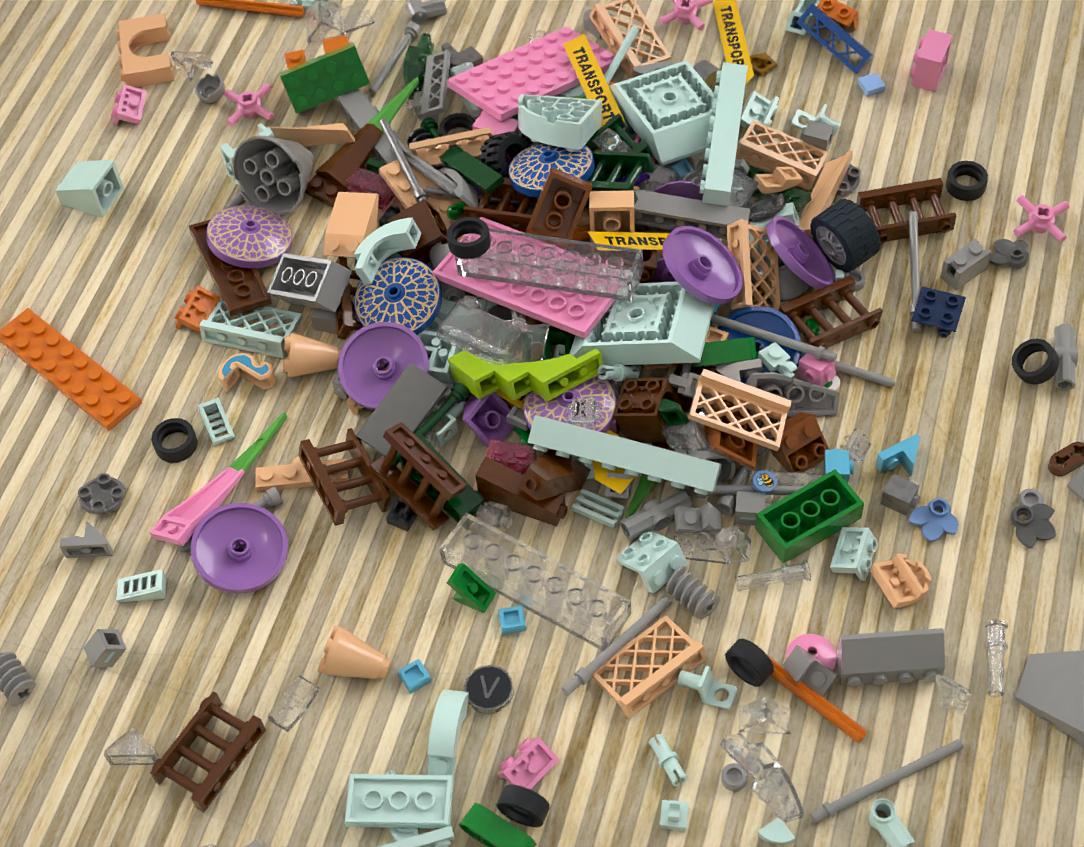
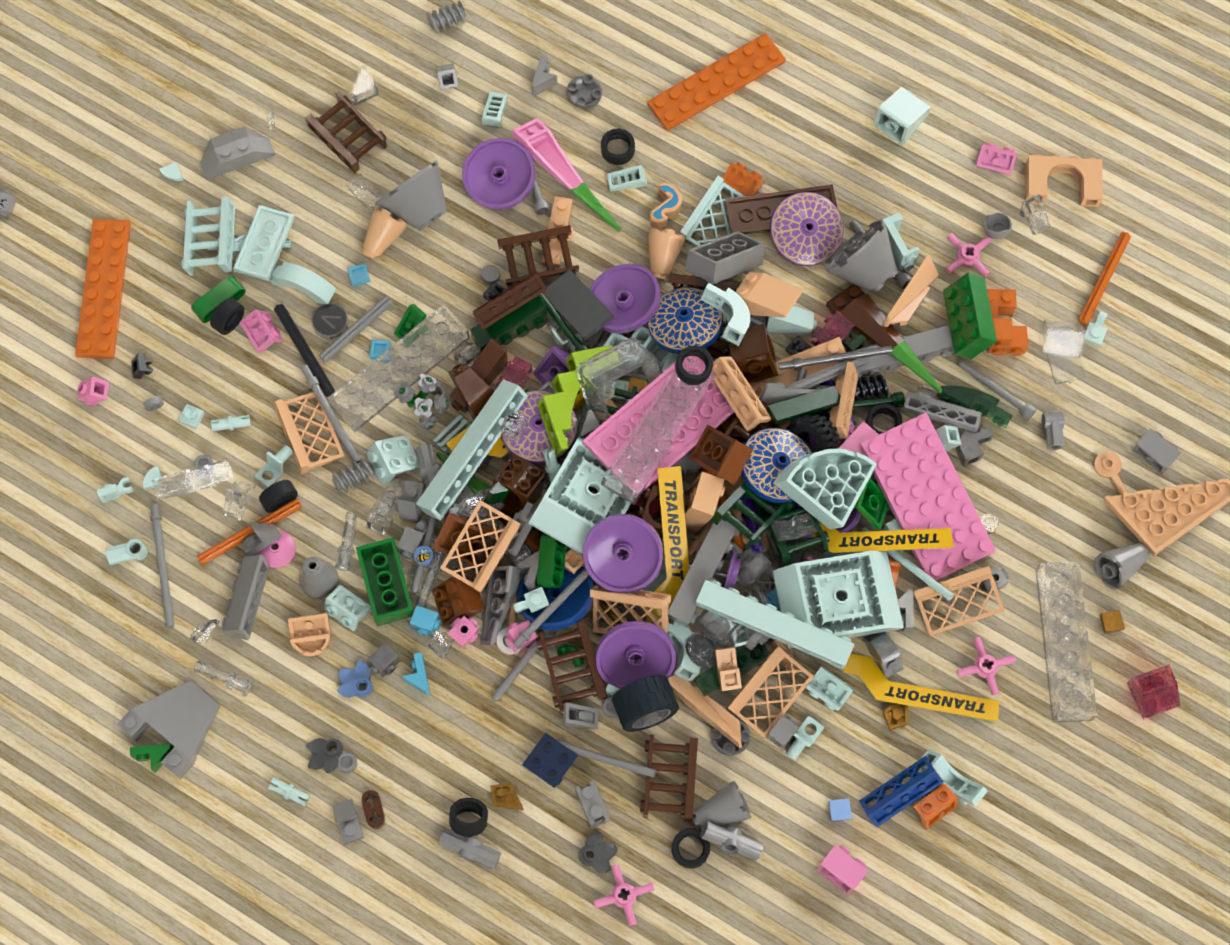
camera: 100 degrees right, 15 degrees up
(290, 624) = (417, 198): none -> light grey cone
(377, 528) = (490, 274): none -> light grey tile
(490, 206) = (739, 393): none -> light nougat fence
(493, 655) = (355, 329): none -> light grey axle
(535, 708) = (304, 349): none -> black axle
(556, 346) = (588, 424): none -> light grey slope
(572, 548) = (422, 405): none -> light grey plant
(830, 591) = (318, 577): none -> light grey cone
(834, 423) = (464, 638): none -> bright pink brick
(881, 297) = (580, 716): none -> light grey slope
(915, 158) = (723, 807): none -> light grey cone
(946, 146) = (731, 840): none -> light grey piece
(993, 343) = (505, 797): none -> pearl gold piece

